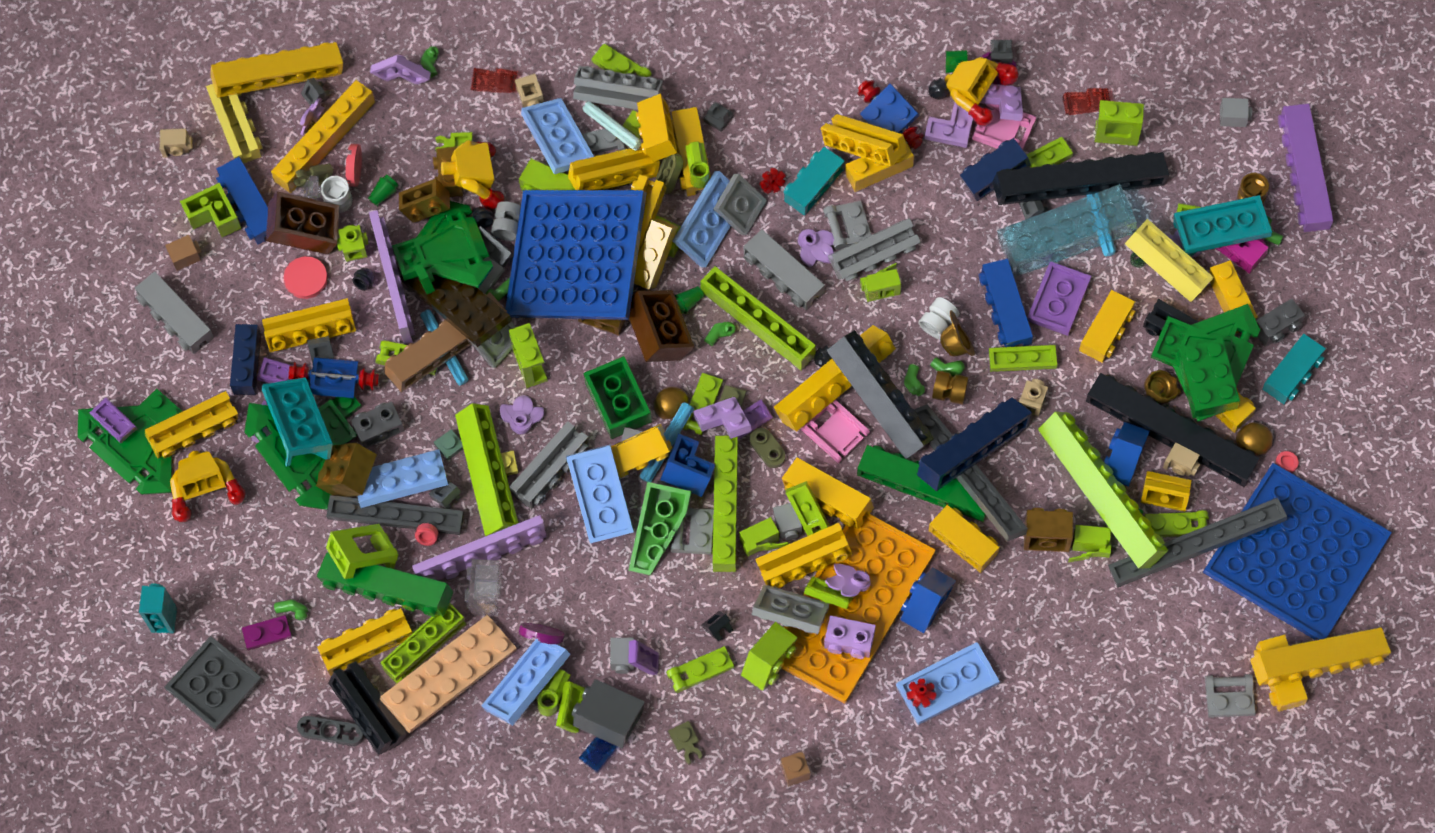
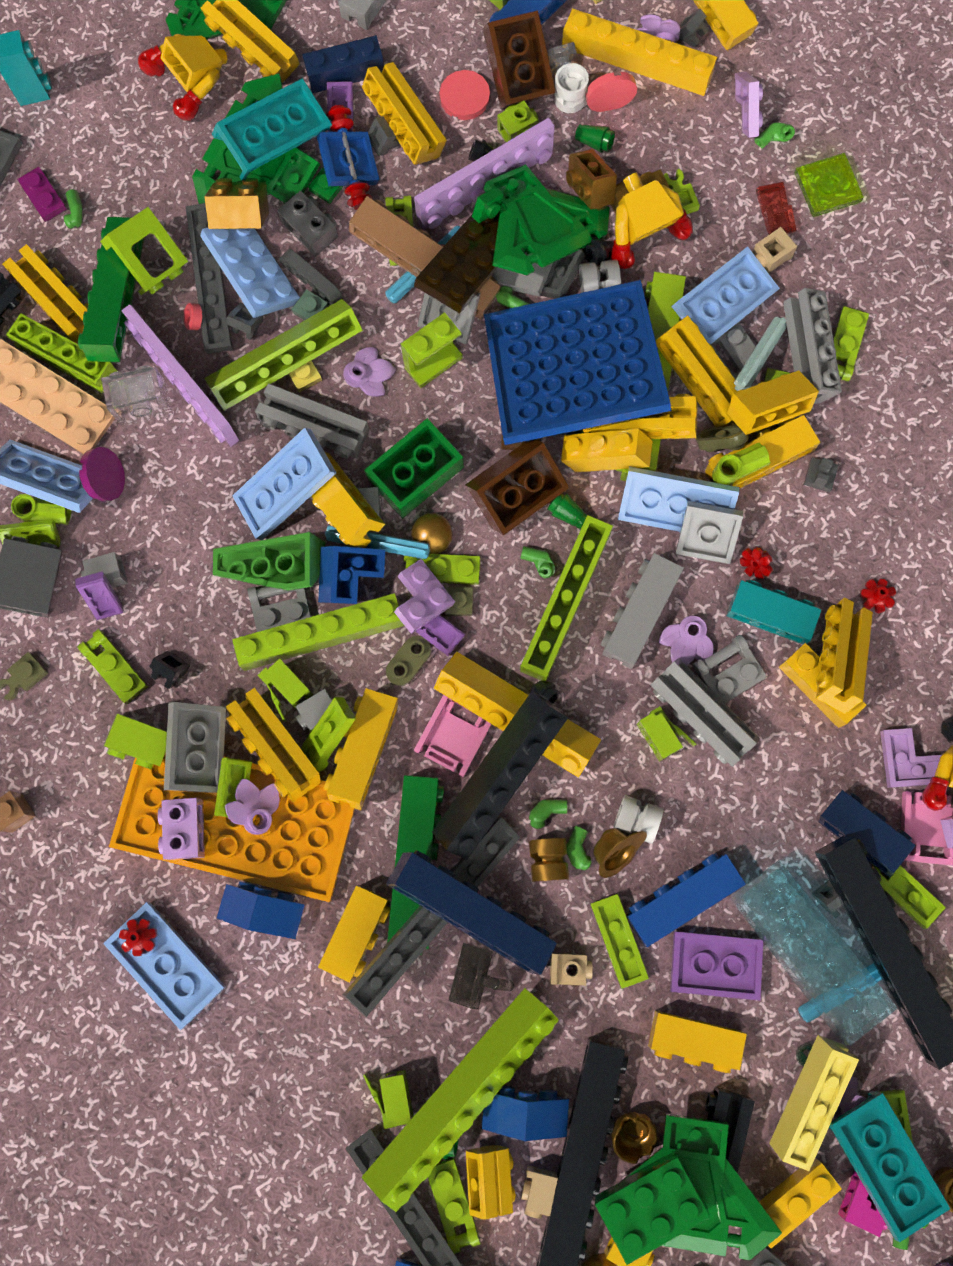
camera: 75 degrees right, 10 degrees up
(322, 171) = (586, 56): olive plate -> none
(429, 432) = (309, 275): none -> dark grey beam
(487, 37) = (828, 185): none -> clear neon green plate
(823, 108) = (878, 595): none -> red plant
(890, 111) = (898, 678): blue plate -> none
(1019, 464) = (472, 977): none -> clear smoke plate
(1048, 530) = (388, 1041): pearl gold brick -> none

